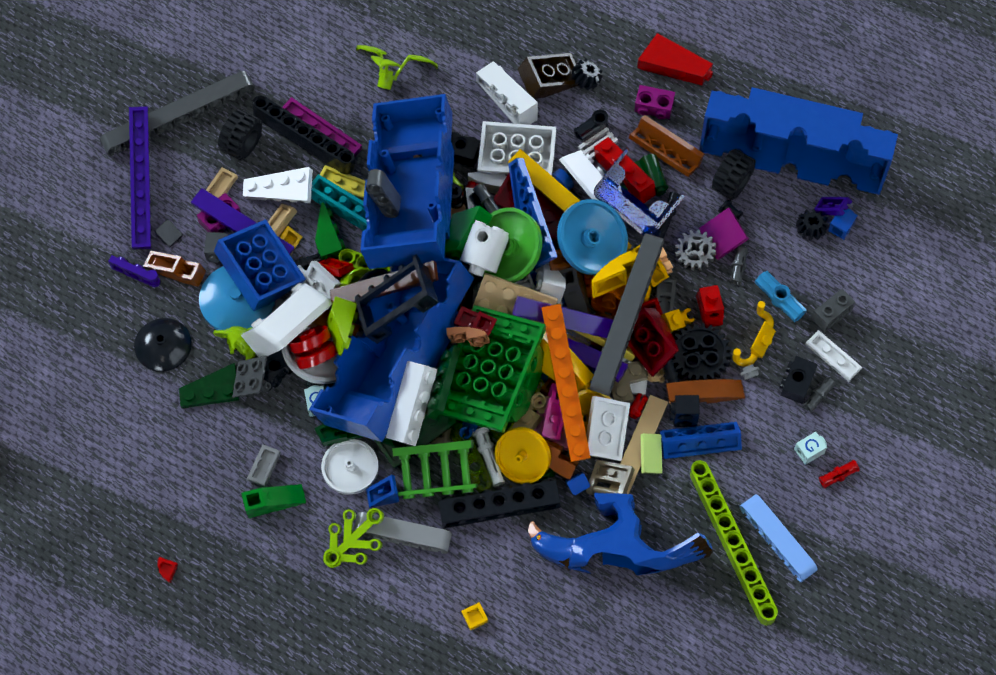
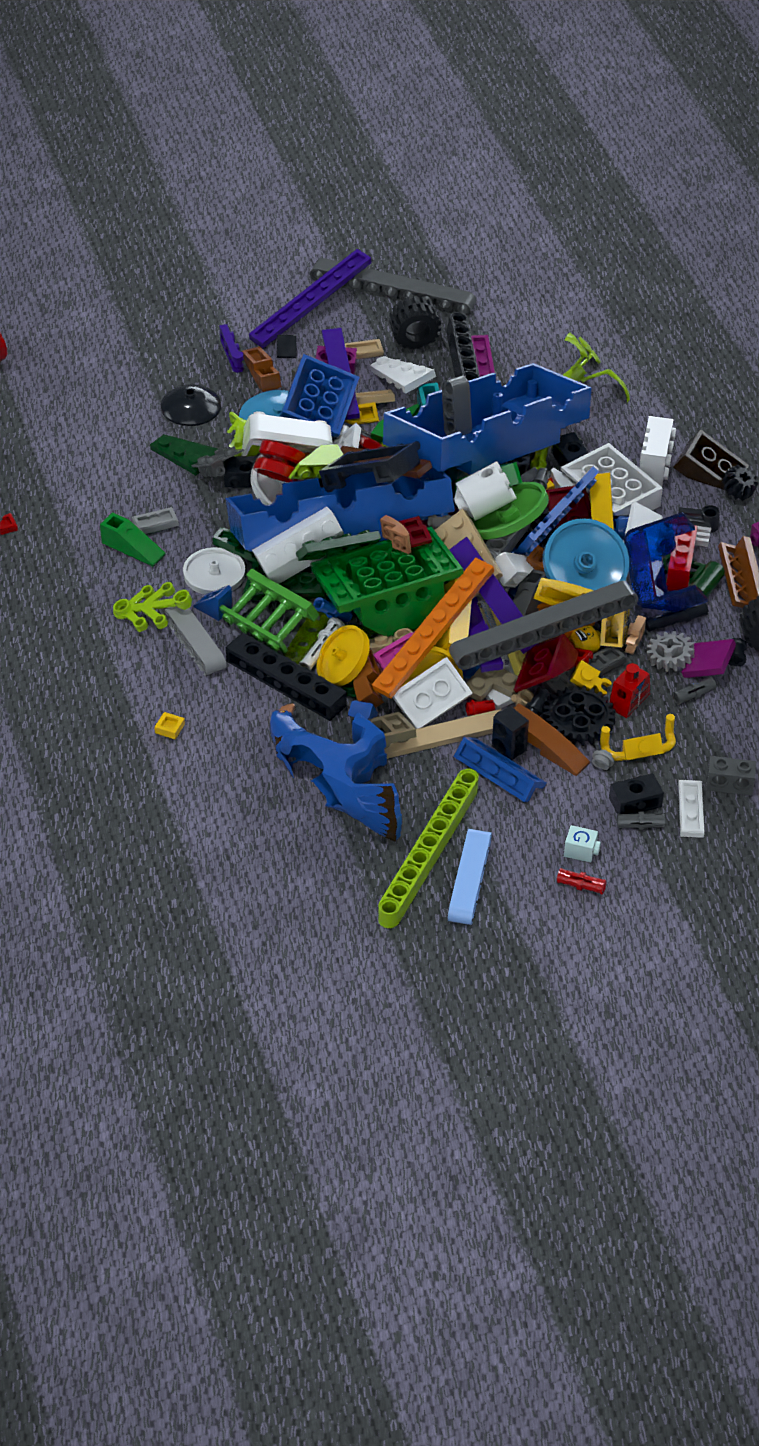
camera: 45 degrees right, 20 degrees down
(651, 454) = (445, 742): yellowish green tile -> none
(772, 288) = (699, 733): dark azure piece -> none

